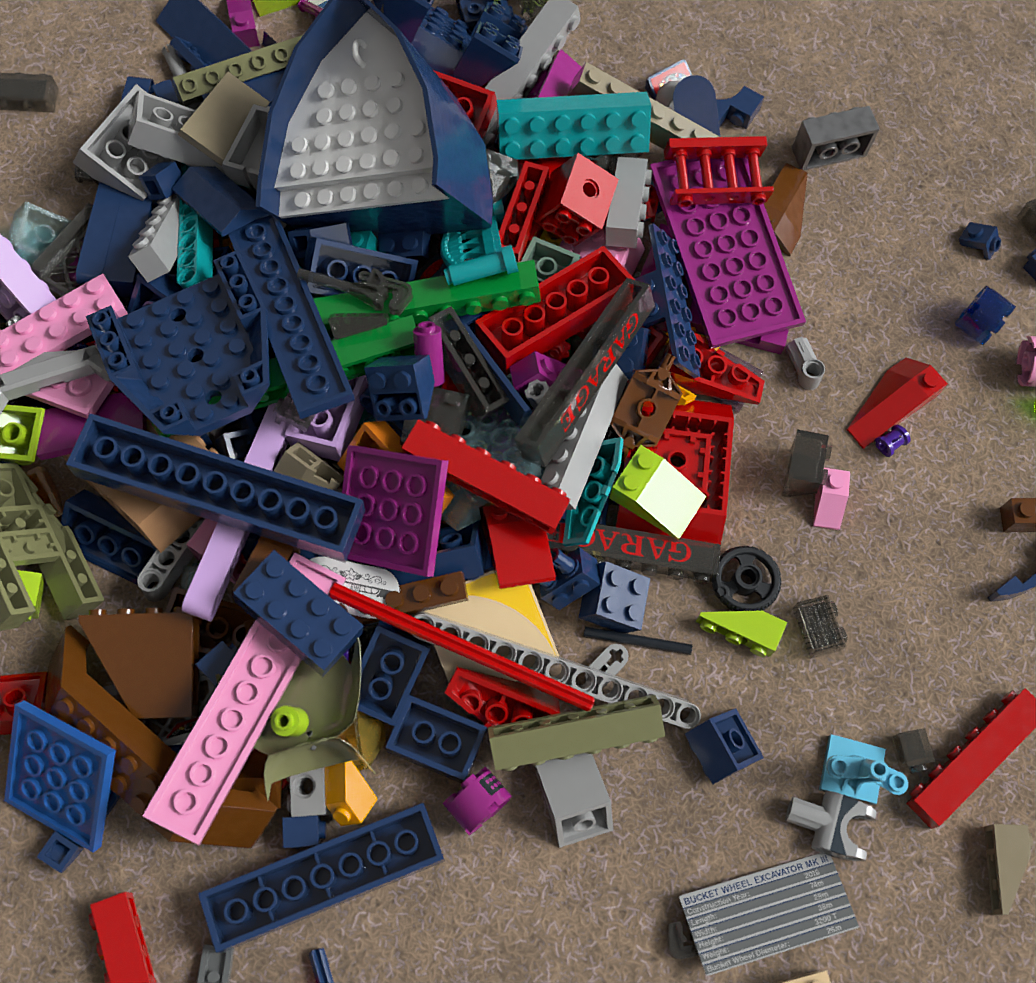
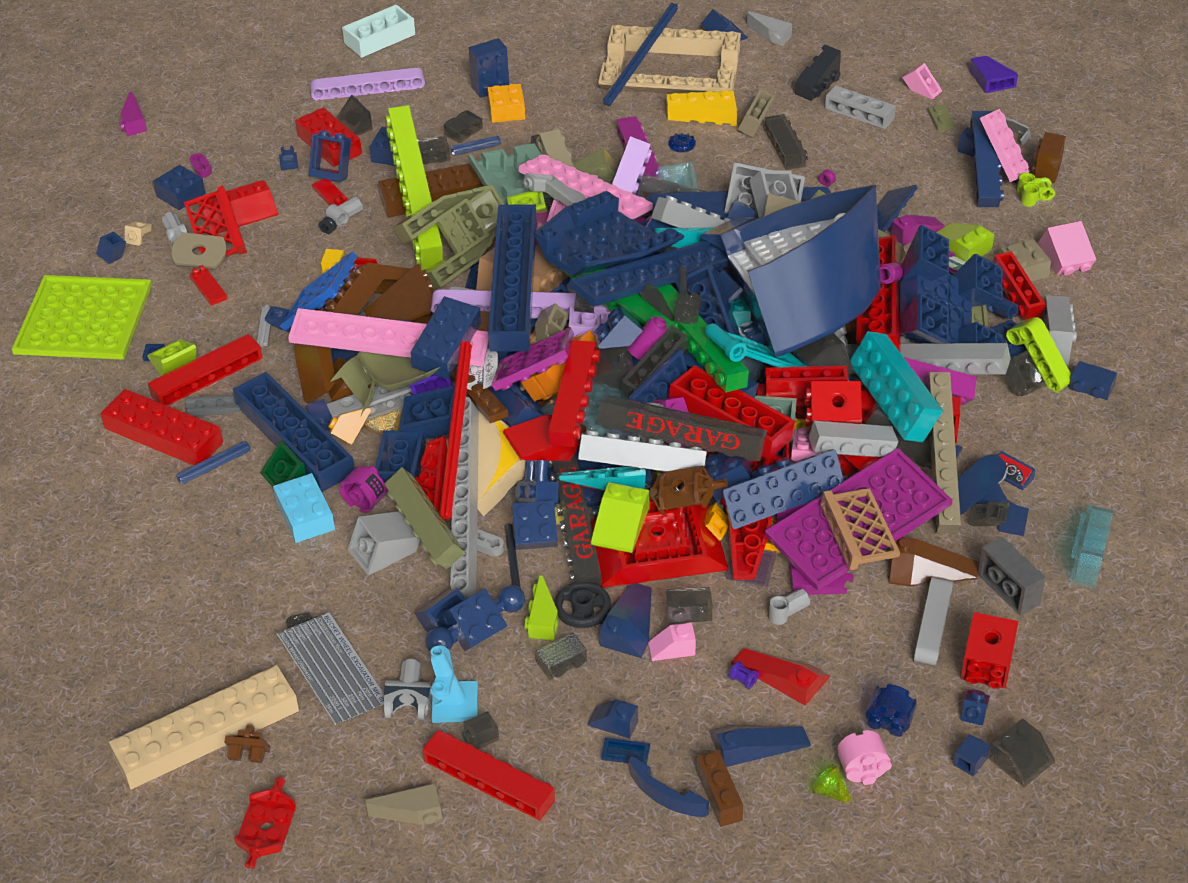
camera: 80 degrees right, 25 degrees down
(70, 877) = (264, 328): none -> light grey axle
(101, 72) = (827, 177): none -> magenta bush
(289, 721) = (378, 362): lime brick -> none
(393, 908) = (282, 465): none -> dark green slope
(478, 892) = (304, 508): none -> medium azure brick
(712, 148) = (923, 469): red fence -> none
(742, 120) = (988, 514): none -> clear smoke slope
(752, 264) = (843, 535): none -> medium nougat fence
(754, 712) = (476, 618): none -> dark blue brick
(783, 537) = (628, 622): none -> dark blue wedge
(805, 53) = (1090, 546): none -> clear light blue wedge
(863, 232) = (933, 621): none -> light grey beam
(924, 594) = (615, 717): none -> dark blue slope
(934, 196) = (989, 650): none -> red brick
(965, 596) = (622, 750): none -> clear blue tile
(982, 462) = (750, 742): none -> dark blue wedge

